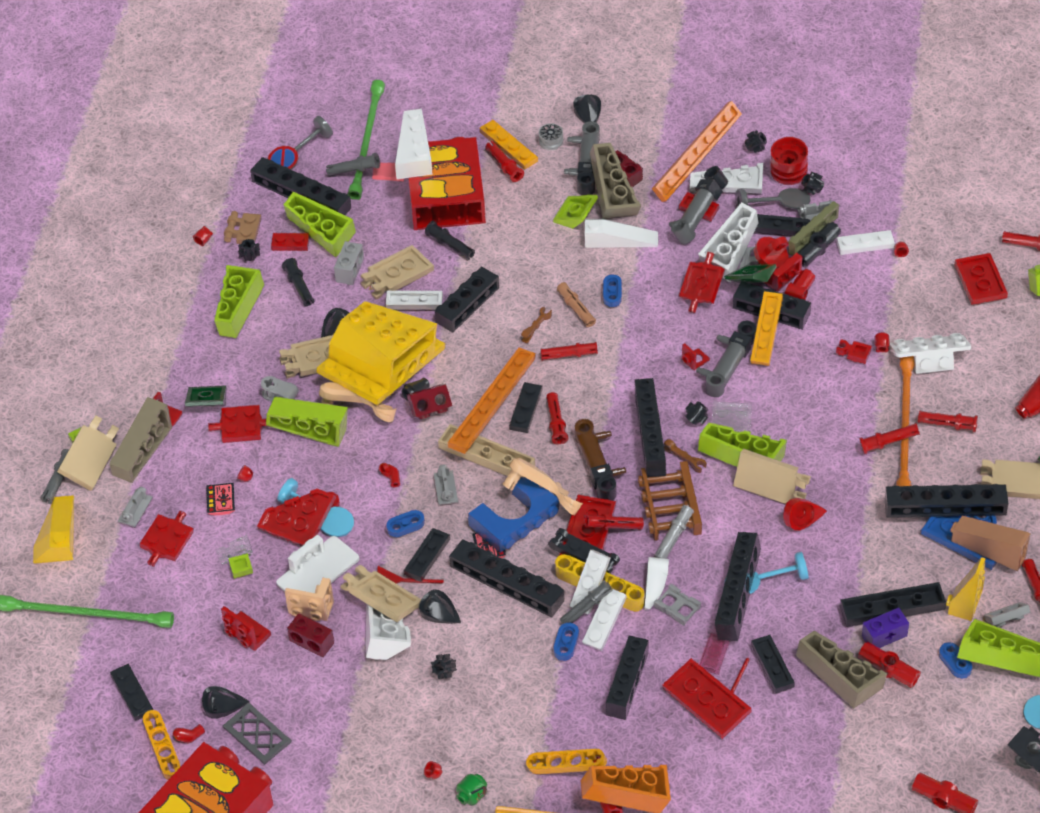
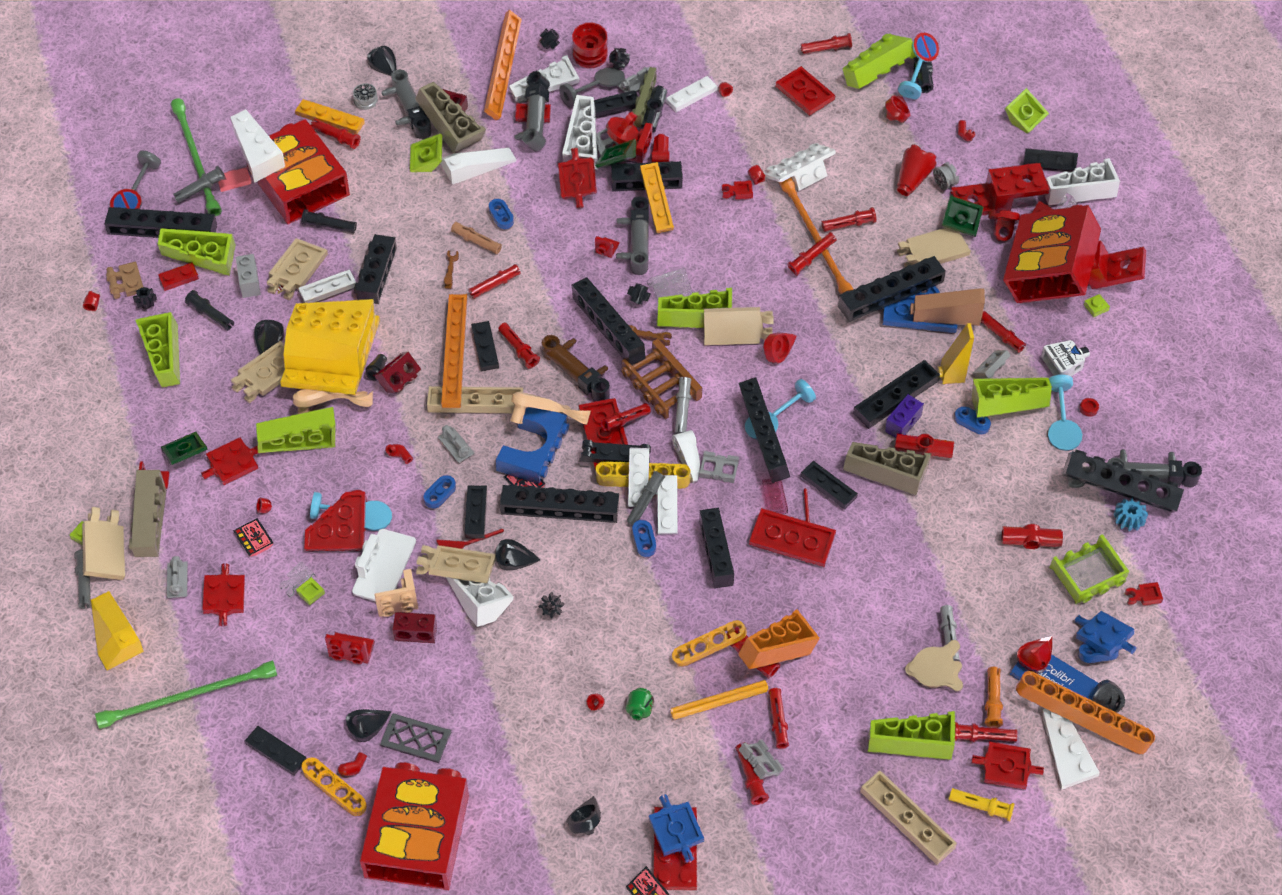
camera: 30 degrees left, 5 degrees up
(279, 389) = (250, 416): light grey piece -> none

